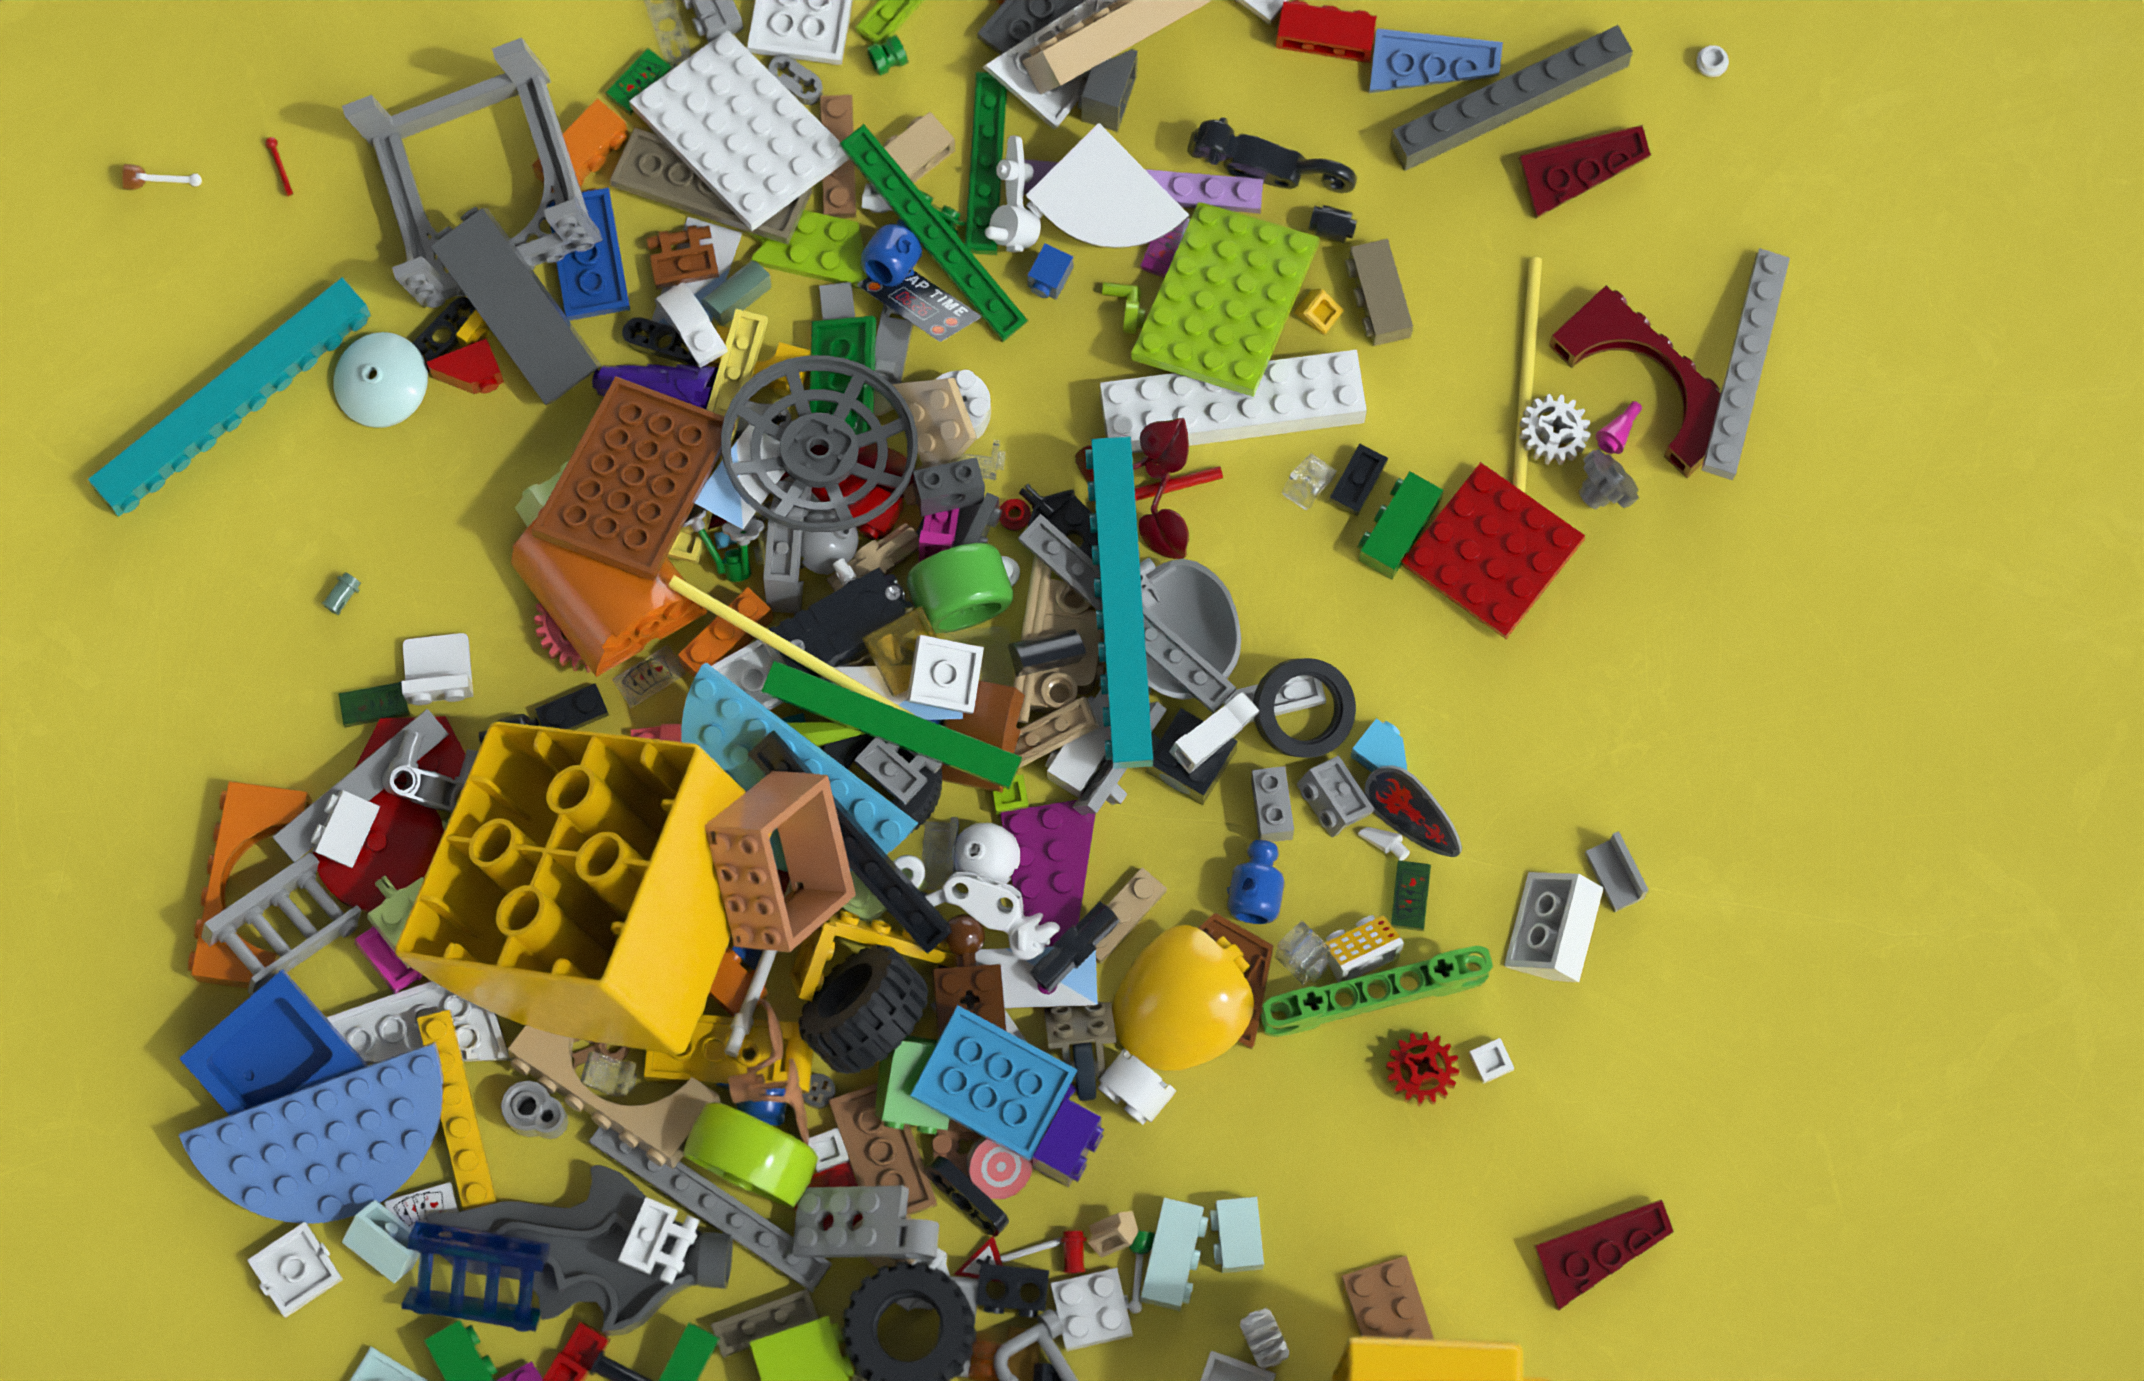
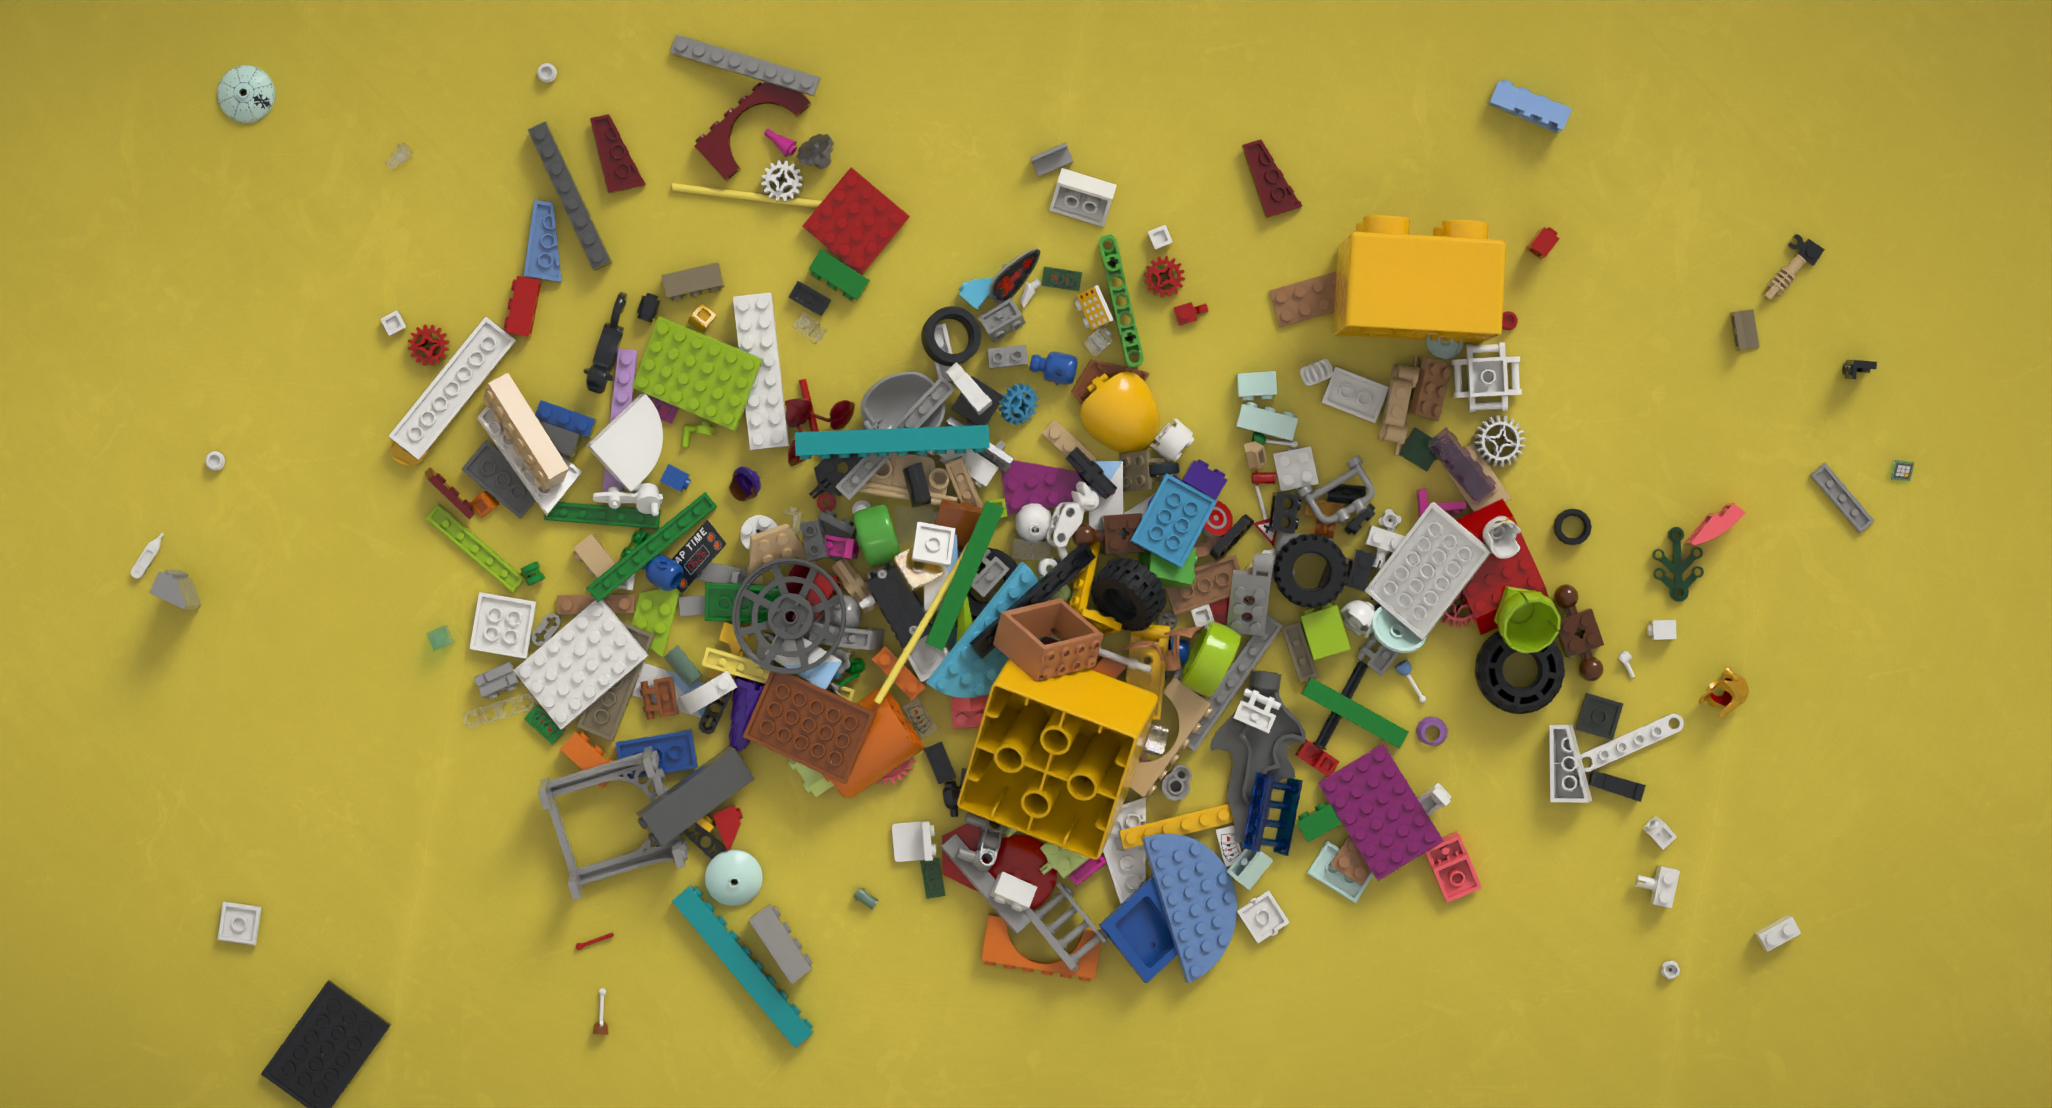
camera: 90 degrees left, 15 degrees up
(266, 452) = (780, 943): none -> light grey slope
(1042, 380) = (745, 484): none -> piece
(1143, 98) = (565, 418): none -> blue brick
(1194, 810) = (1019, 404): none -> dark azure gear
(1360, 1113) = (1187, 313): none -> red plate

